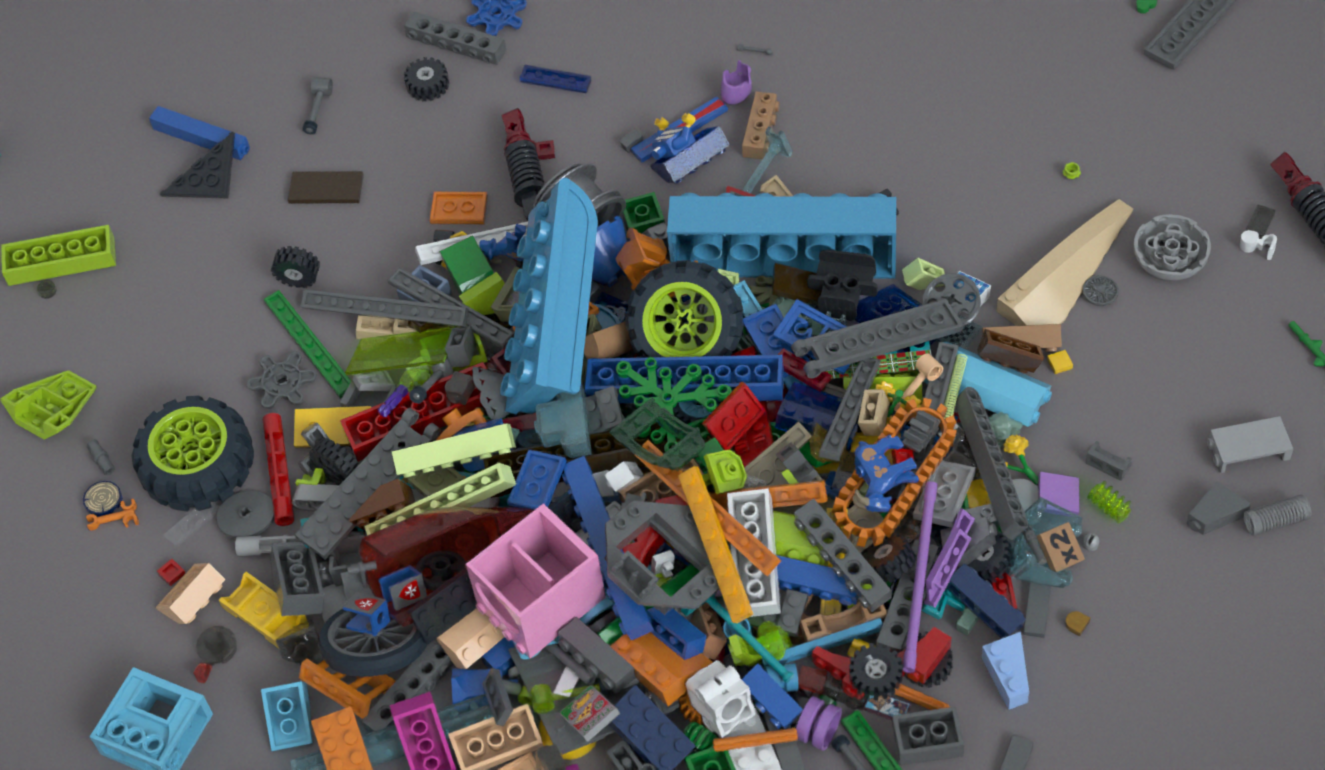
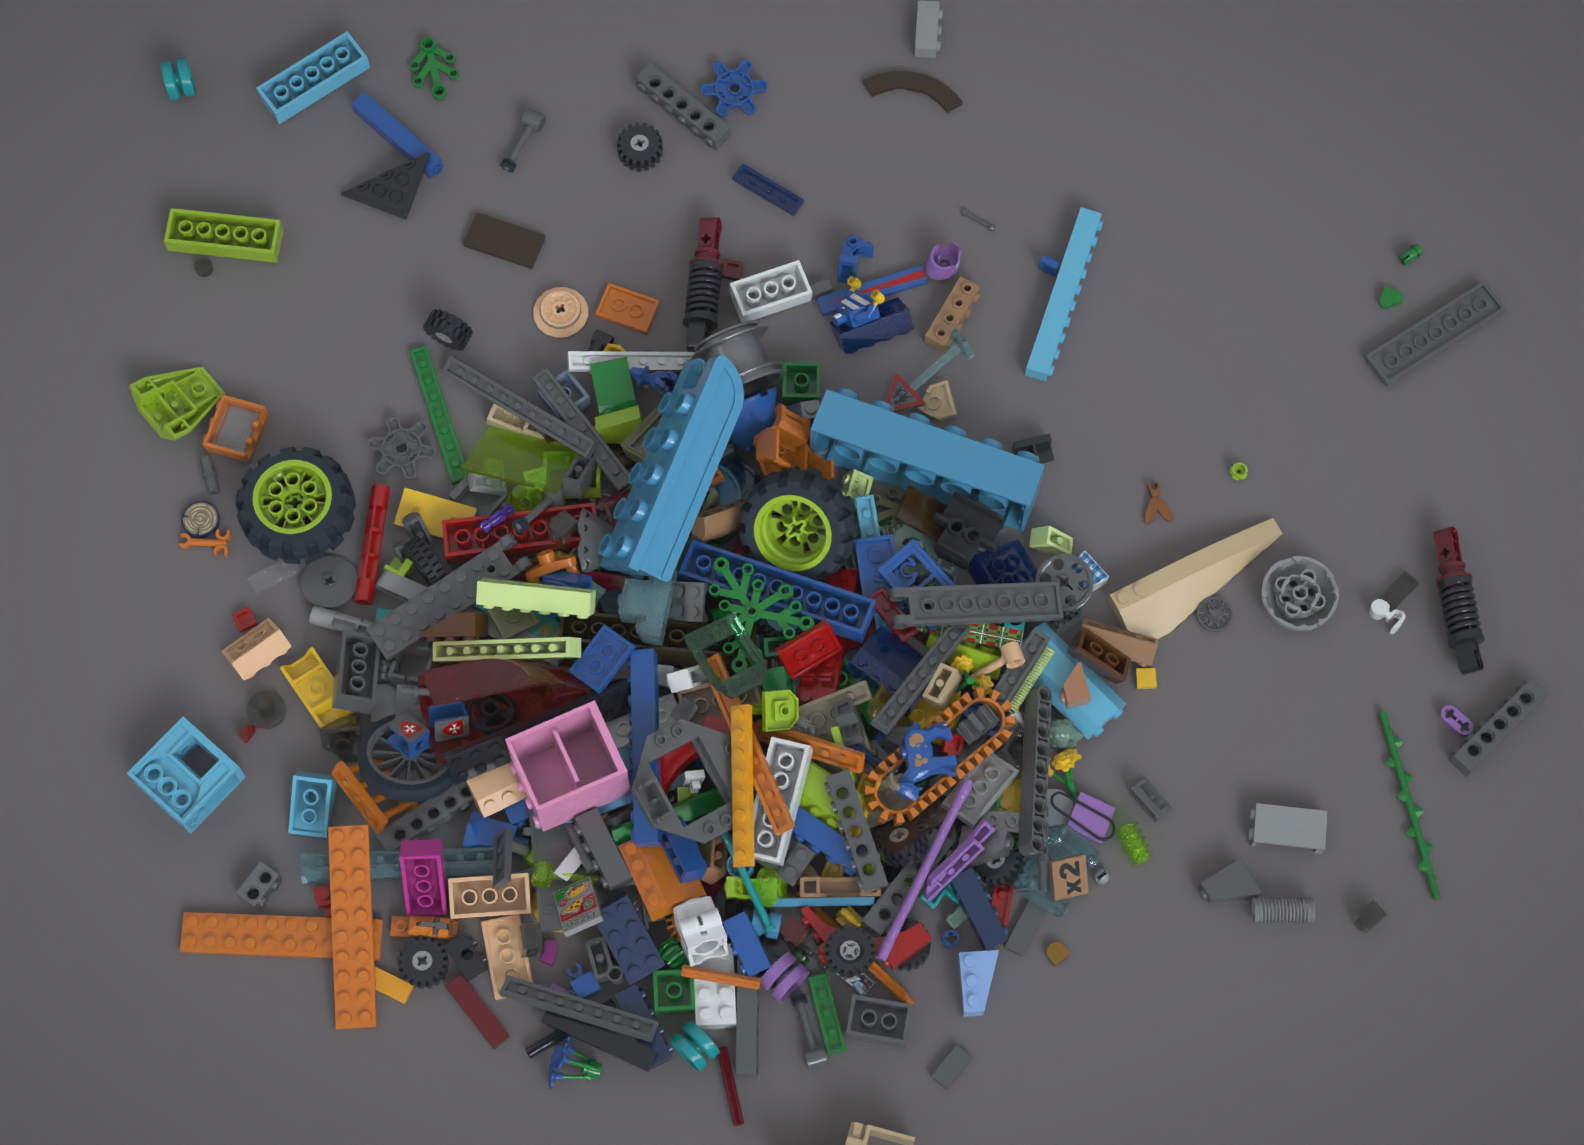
camera: 10 degrees right, 15 degrees up
(107, 109) = (313, 77): none -> medium azure brick
(115, 410) = (235, 428): none -> window
(208, 59) = (433, 66): none -> green plant
(397, 228) = (563, 323): none -> light nougat piece
(595, 146) = (770, 291): none -> white brick
(650, 100) = (848, 262): none -> blue tile
(832, 63) = (1049, 265): none -> blue plate
(854, 82) = (1063, 294): none -> medium azure brick
(971, 637) = (954, 934): none -> blue bush
(1000, 381) = (1075, 689): none -> nougat slope
(1008, 220) = (1157, 504): none -> dark orange piece
(1052, 483) = (1077, 823): none -> black piece

